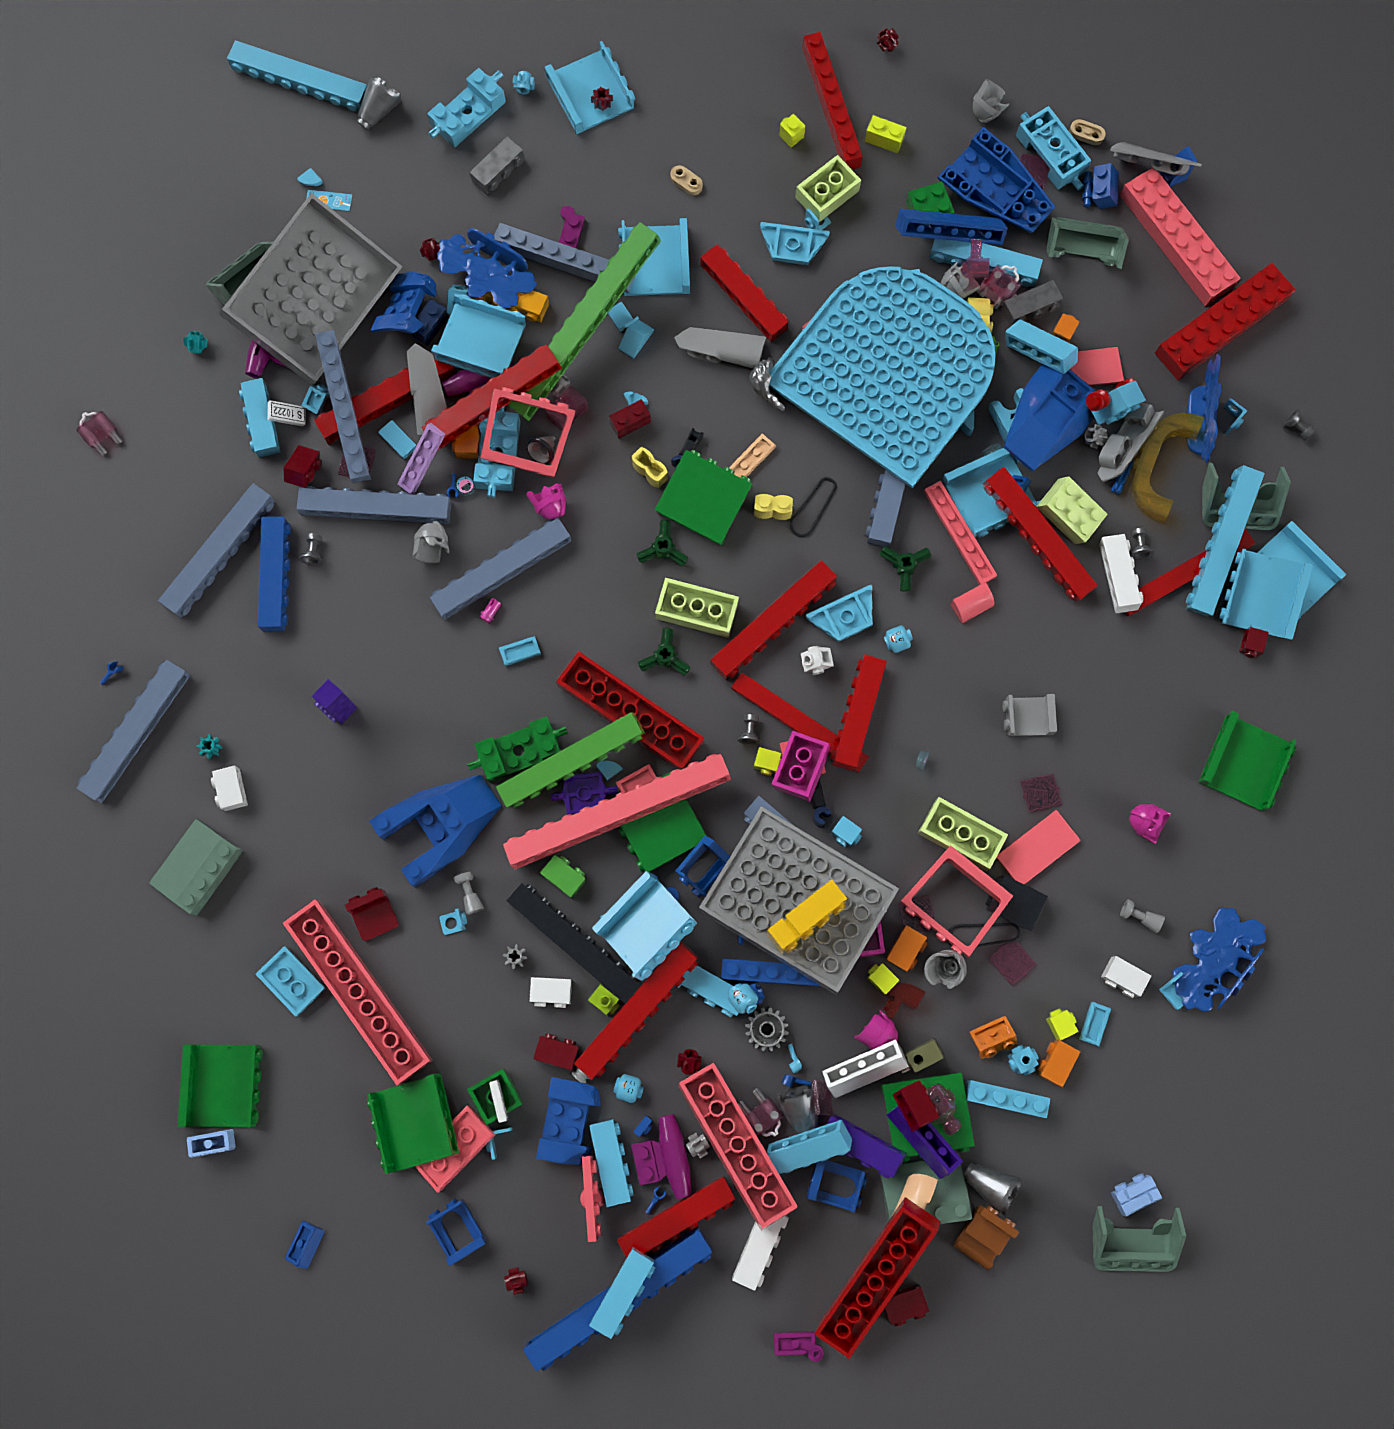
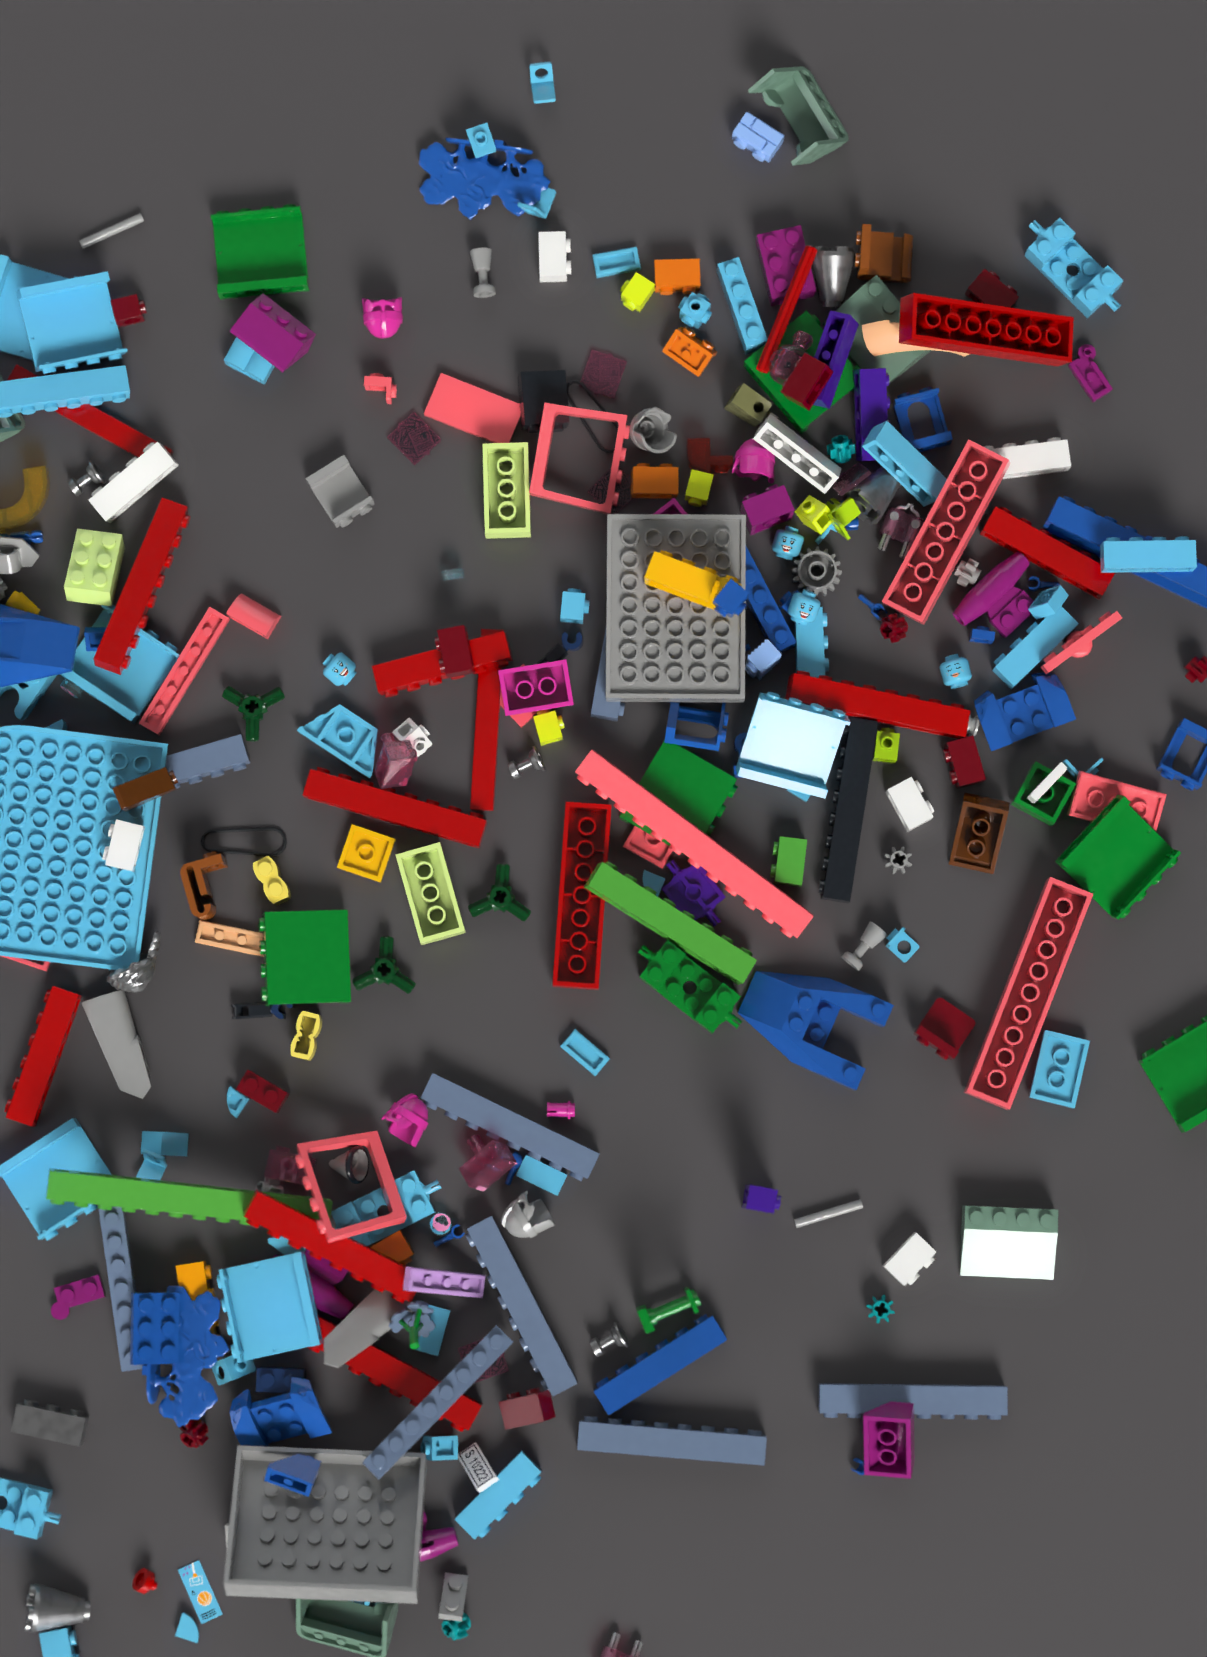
camera: 120 degrees left, 5 degrees up
(113, 694) = (889, 1440): none -> magenta slope
(213, 349) = (453, 1597): none -> light grey plate
(299, 752) = (828, 1213): none -> light grey bar
(303, 585) = (650, 1316): none -> green fence
(357, 168) = (144, 1581): none -> red tile
(357, 288) = (294, 1473): none -> blue slope
(406, 430) = (417, 1326): none -> sand blue plant
(453, 570) = (541, 1175): none -> medium azure tile
(475, 560) = (519, 1159): none -> blue hand
(483, 536) = (487, 1164): none -> clear pink brick
(498, 1030) = (979, 833): none -> reddish brown slope
(513, 255) = (154, 1328): none -> blue plate
(637, 1193) = (1048, 602): none -> medium azure piece
(713, 1057) = (875, 608): none -> blue hand
(723, 945) = (762, 659): none -> light blue brick
(753, 582) = (366, 853): none -> yellow plate
(774, 931) = (731, 600): none -> blue brick
(799, 1075) = (842, 514): none -> lime bracket
(801, 454) = (210, 862): none -> dark orange piece
(801, 1020) = (787, 543): none -> medium azure head
(806, 635) = (394, 762): none -> clear pink brick
(810, 1054) = (814, 514): none -> neon yellow brick
(836, 1018) = (767, 509): none -> magenta brick
(850, 1106) = (841, 449): none -> teal gear
(856, 415) = (124, 845): none -> white brick
(861, 721) = (455, 651): none -> dark red brick
(888, 448) = (145, 788): none -> reddish brown slope
(912, 1384) = (1056, 251): none -> medium azure brick
(985, 1131) = (787, 308): none -> red axle
(1020, 1153) = (779, 258): none -> magenta brick
(1071, 451) = (22, 602): none -> yellow cone
(1098, 790) = (378, 382): none -> coral bracket
(1167, 707) = (248, 362): none -> medium azure brick
(1179, 733) = (273, 333): none -> magenta slope
(1248, 972) = (481, 140): none -> medium azure bracket
(1267, 1051) = (542, 87): none -> medium azure bracket
(1322, 666) = (112, 230): none -> light grey bar

